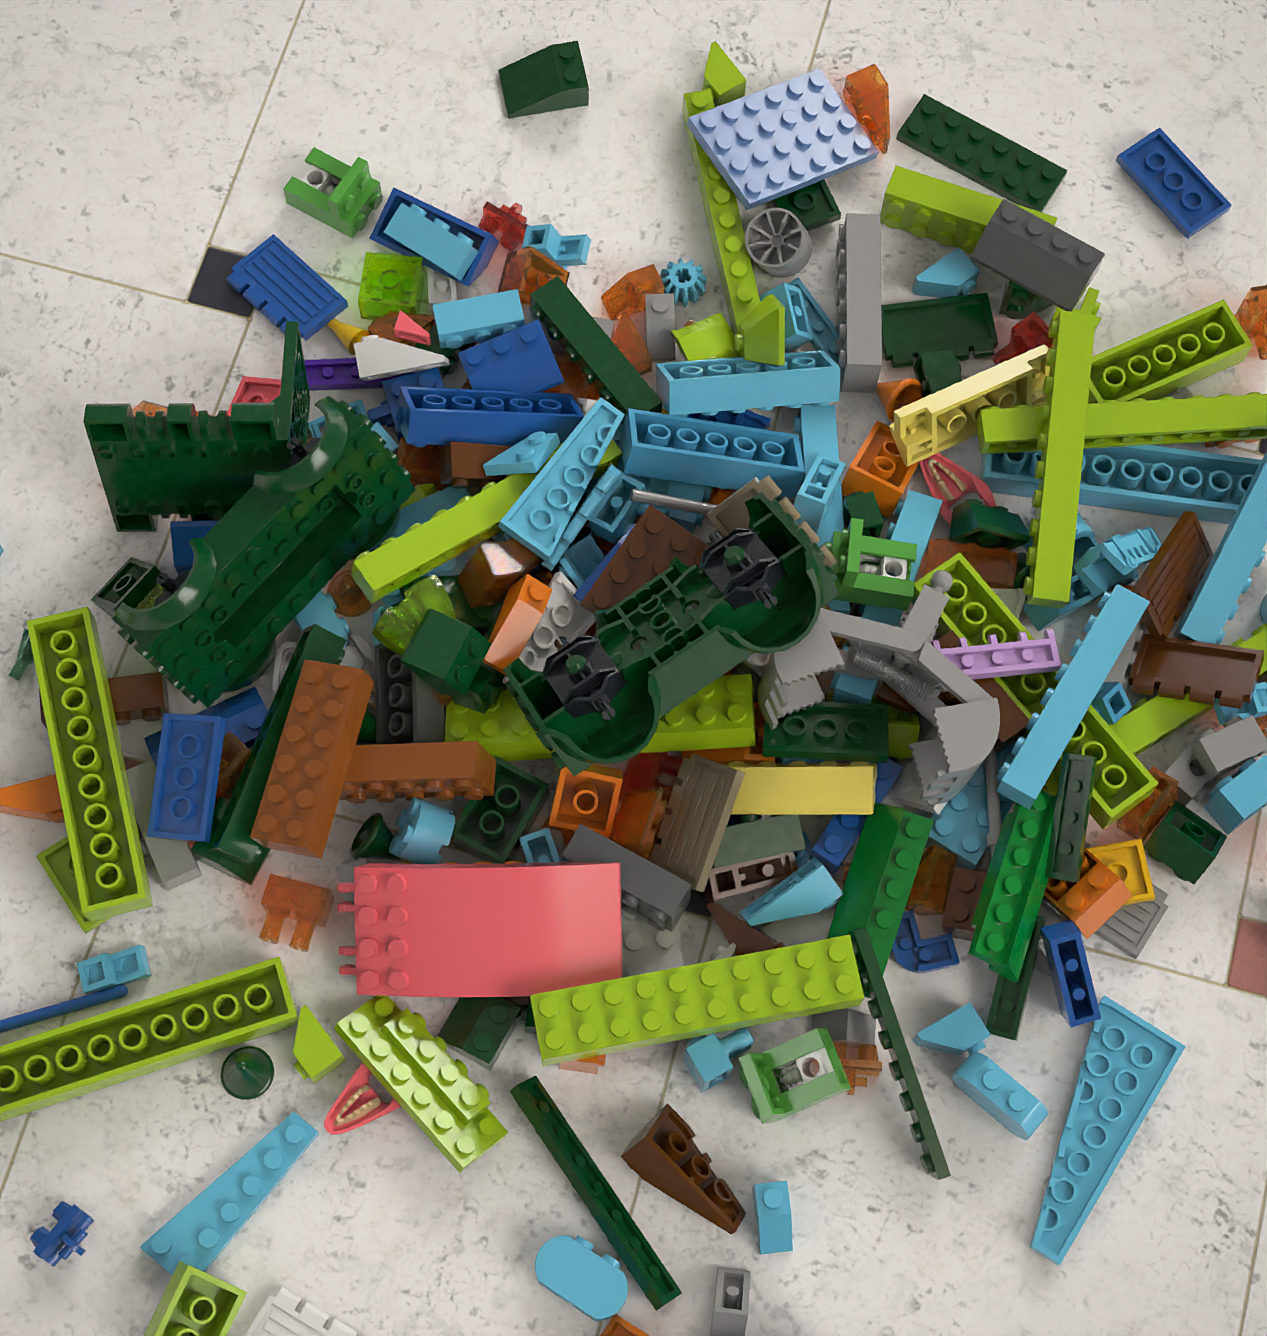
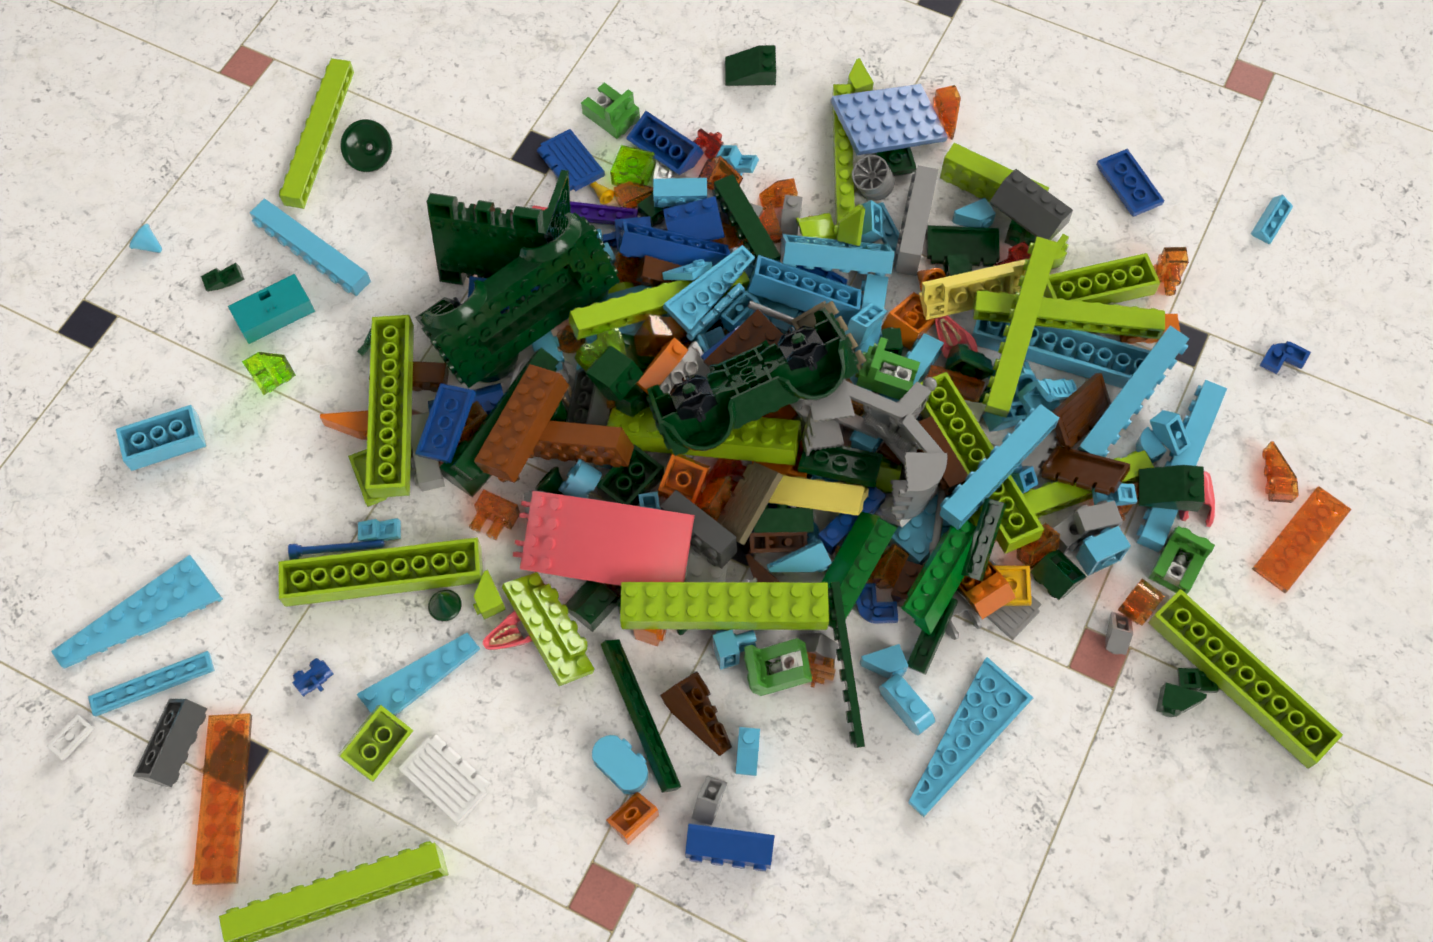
camera: 15 degrees right, 5 degrees down
(386, 358) = (618, 206): white slope -> none
(409, 330) = (638, 193): coral piece -> none
(432, 240) = (662, 143): medium azure brick -> none
(684, 272) = (812, 192): medium azure gear -> none
(981, 154) = (1011, 147): dark green plate -> none
(1005, 658) = (960, 436): lavender hinge -> none
(1070, 973) = (966, 637): blue brick -> none

